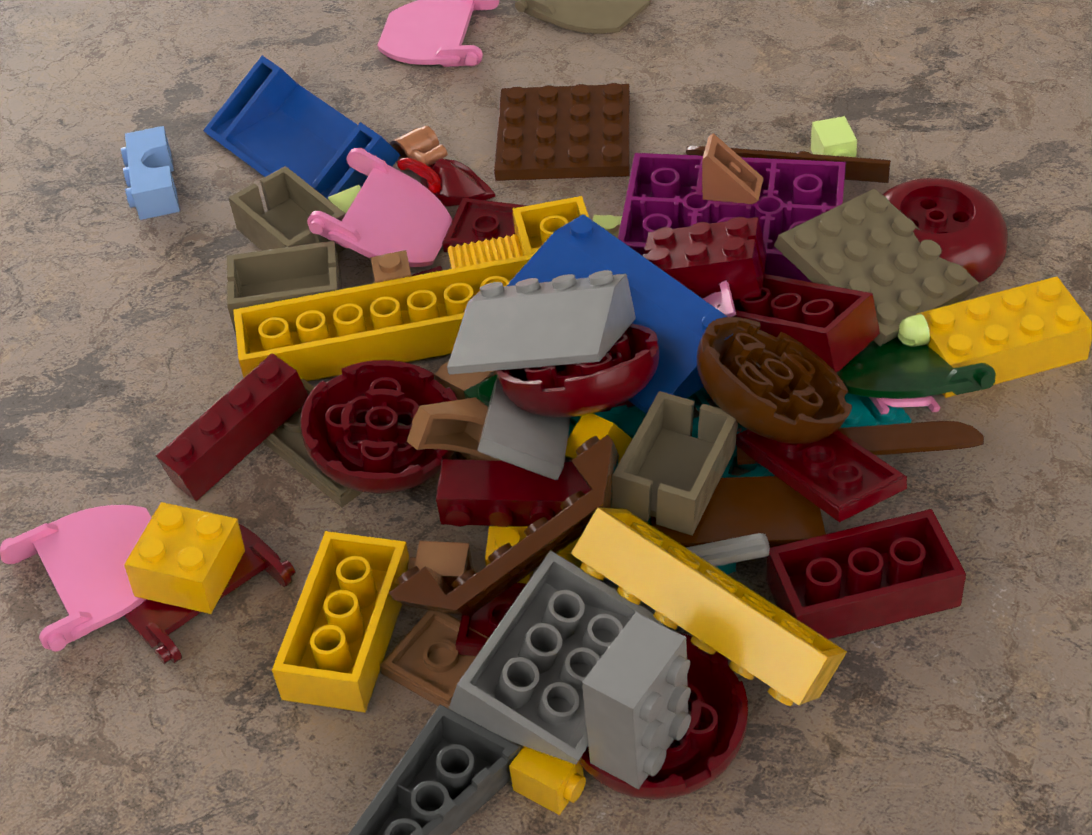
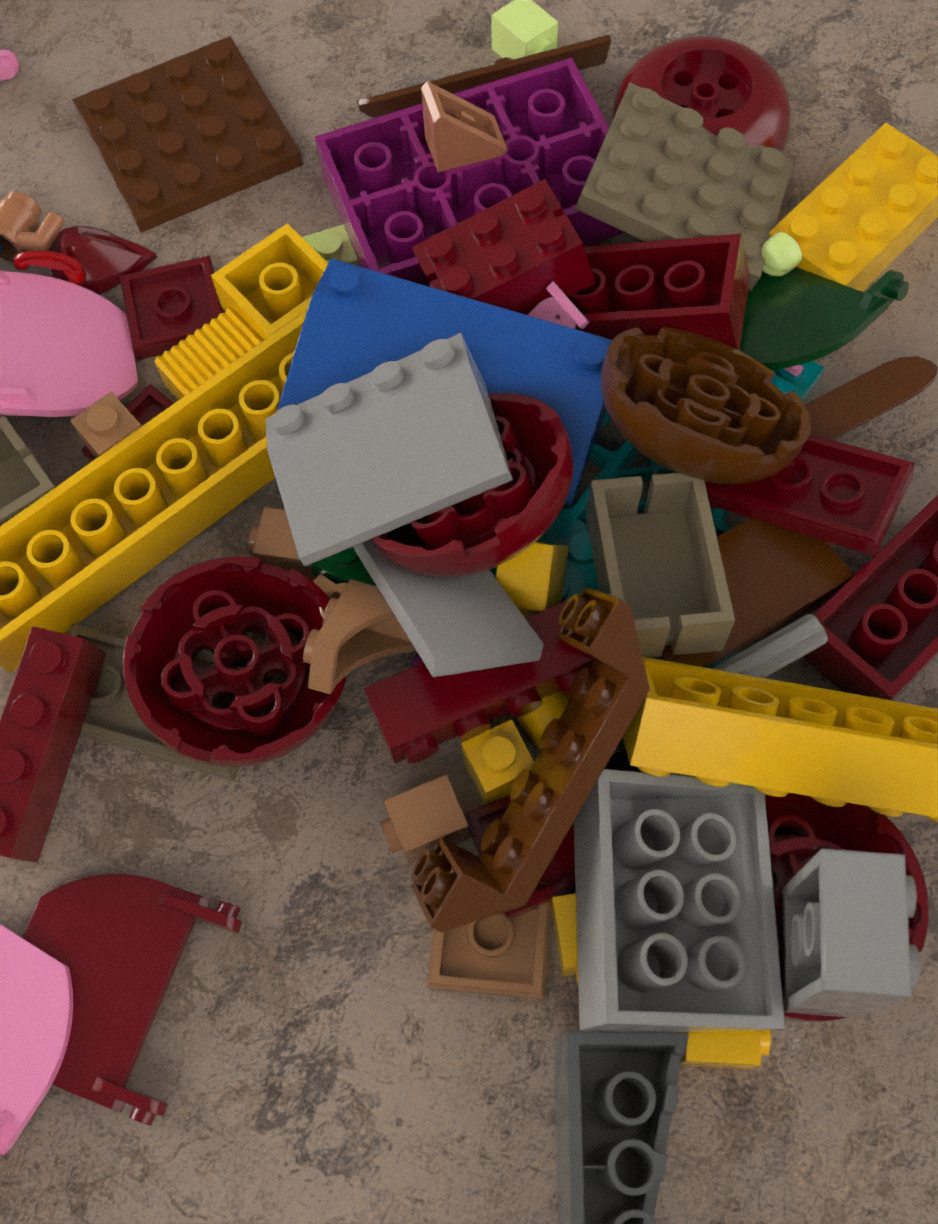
camera: 30 degrees left, 20 degrees up
(185, 557) = (94, 975): yellow brick -> none
(342, 623) = (354, 958): yellow brick -> none

